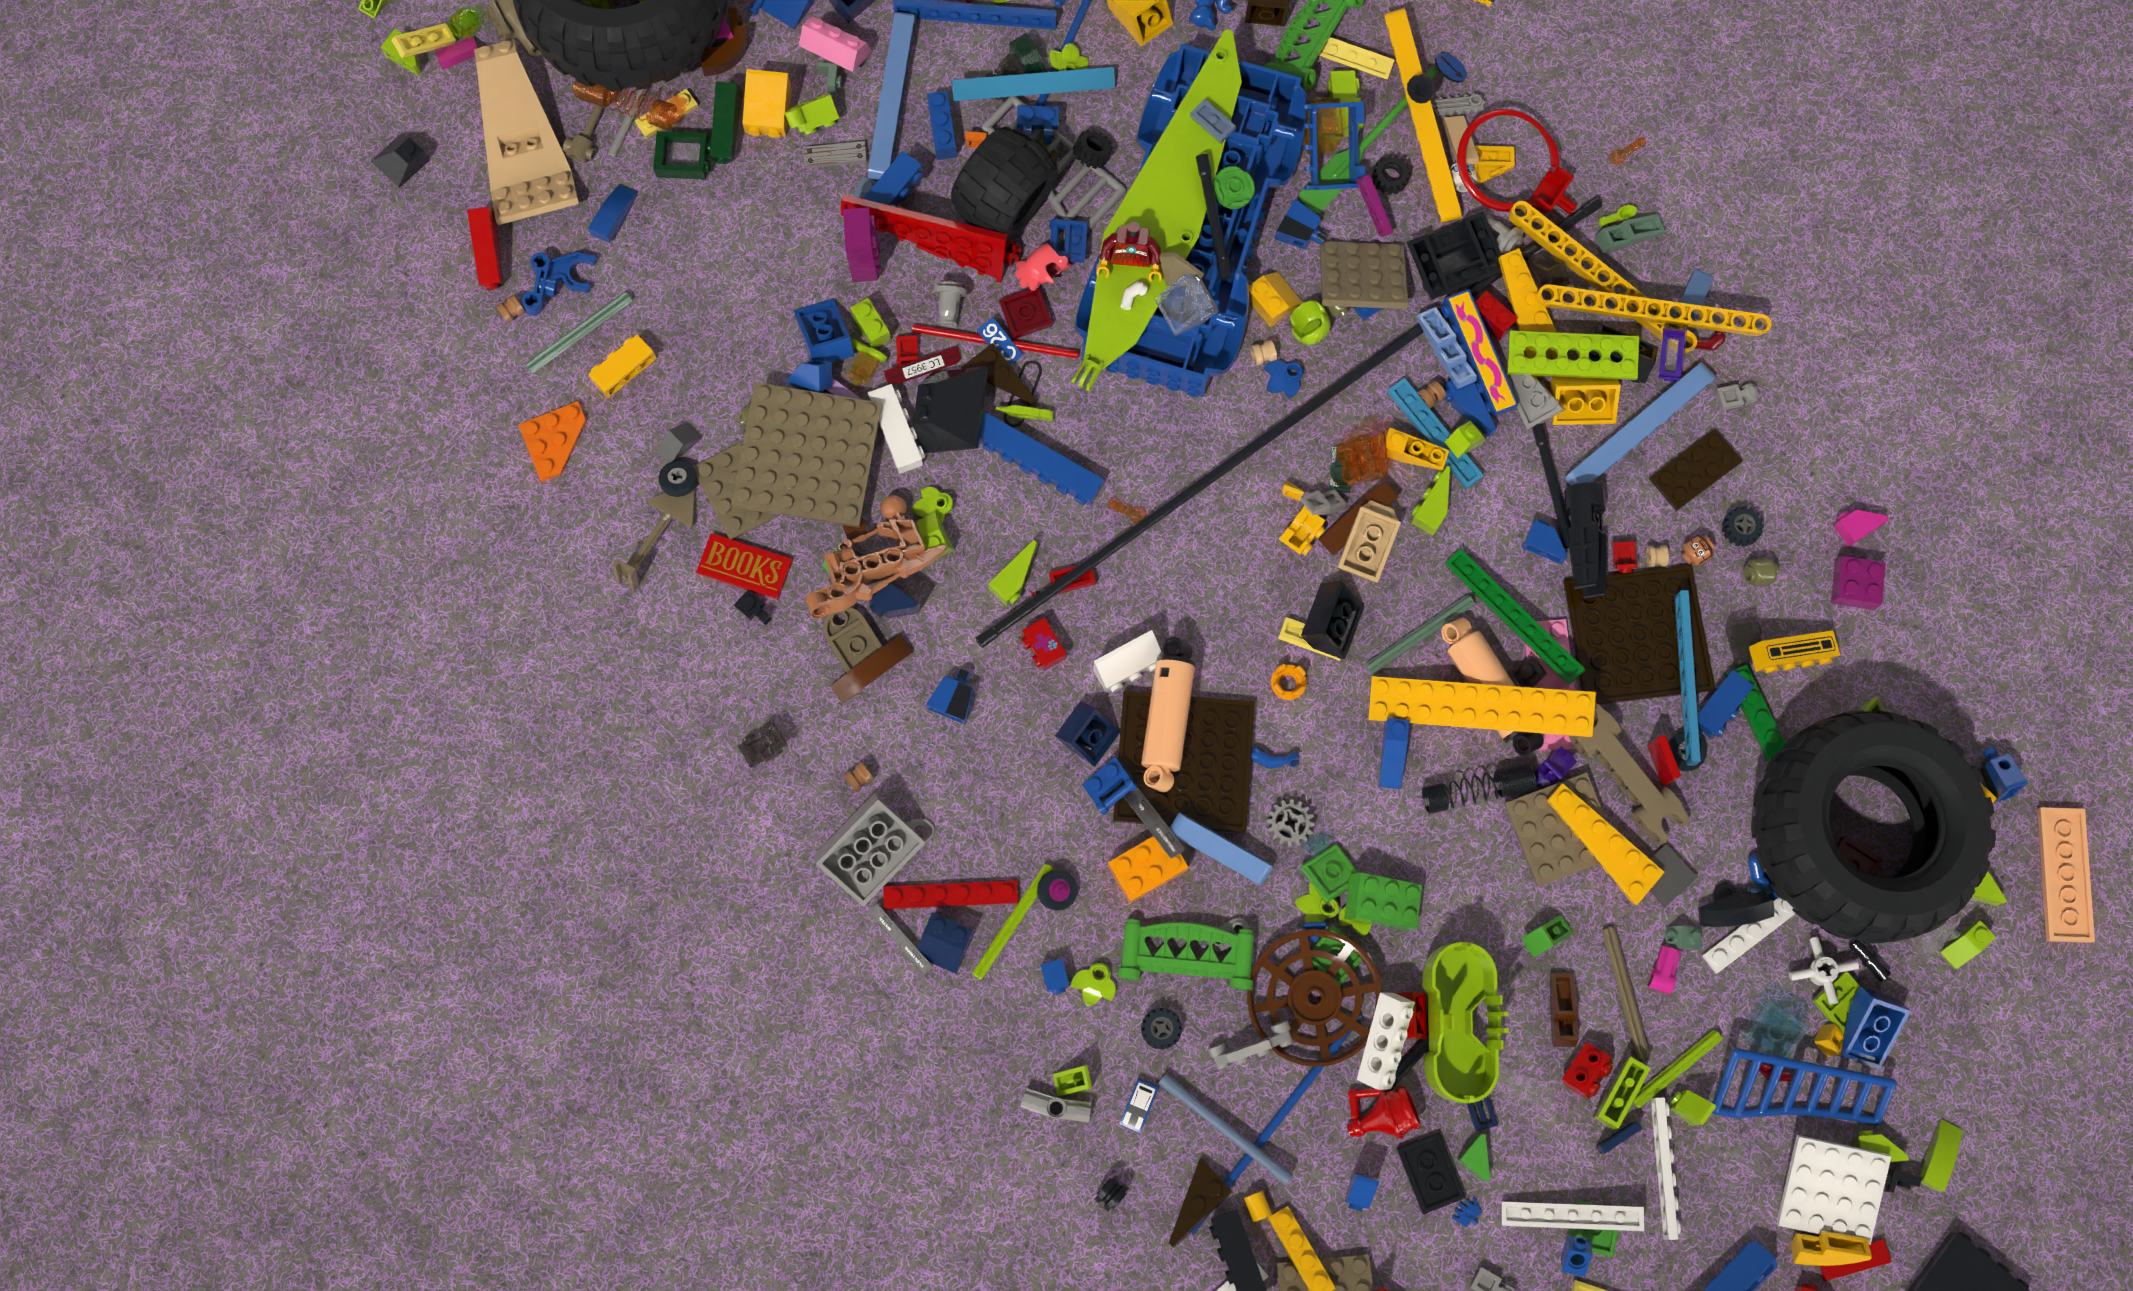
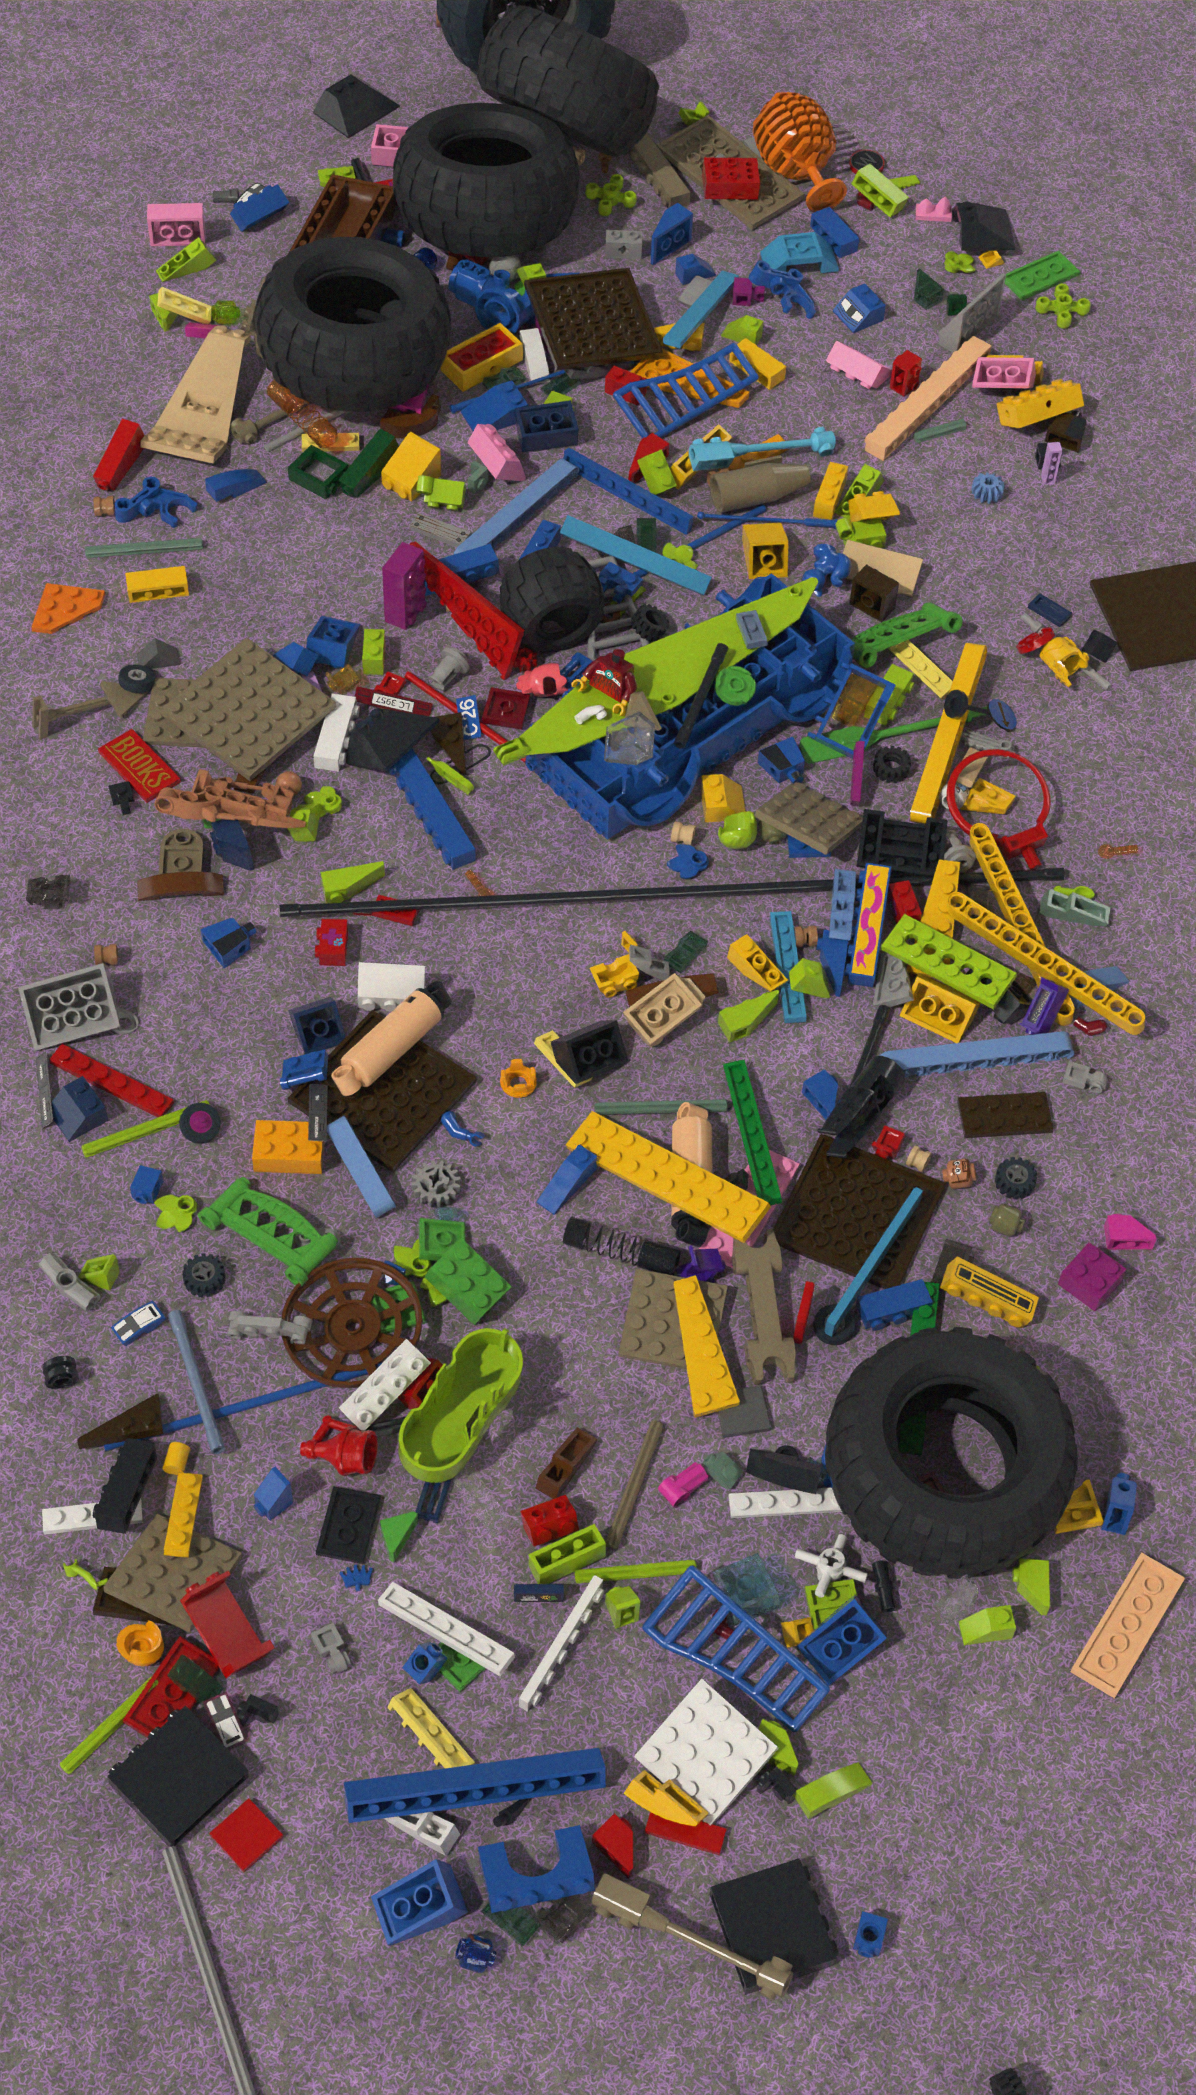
camera: 30 degrees right, 20 degrees down
(401, 159) = (105, 376): black slope -> none
(869, 350) = (360, 672): lime piece -> none
(1363, 459) = (706, 945): clear orange piece -> none
(1547, 936) = (595, 1394): bright green slope -> none
(2031, 1252) = (875, 1925): none -> blue brick

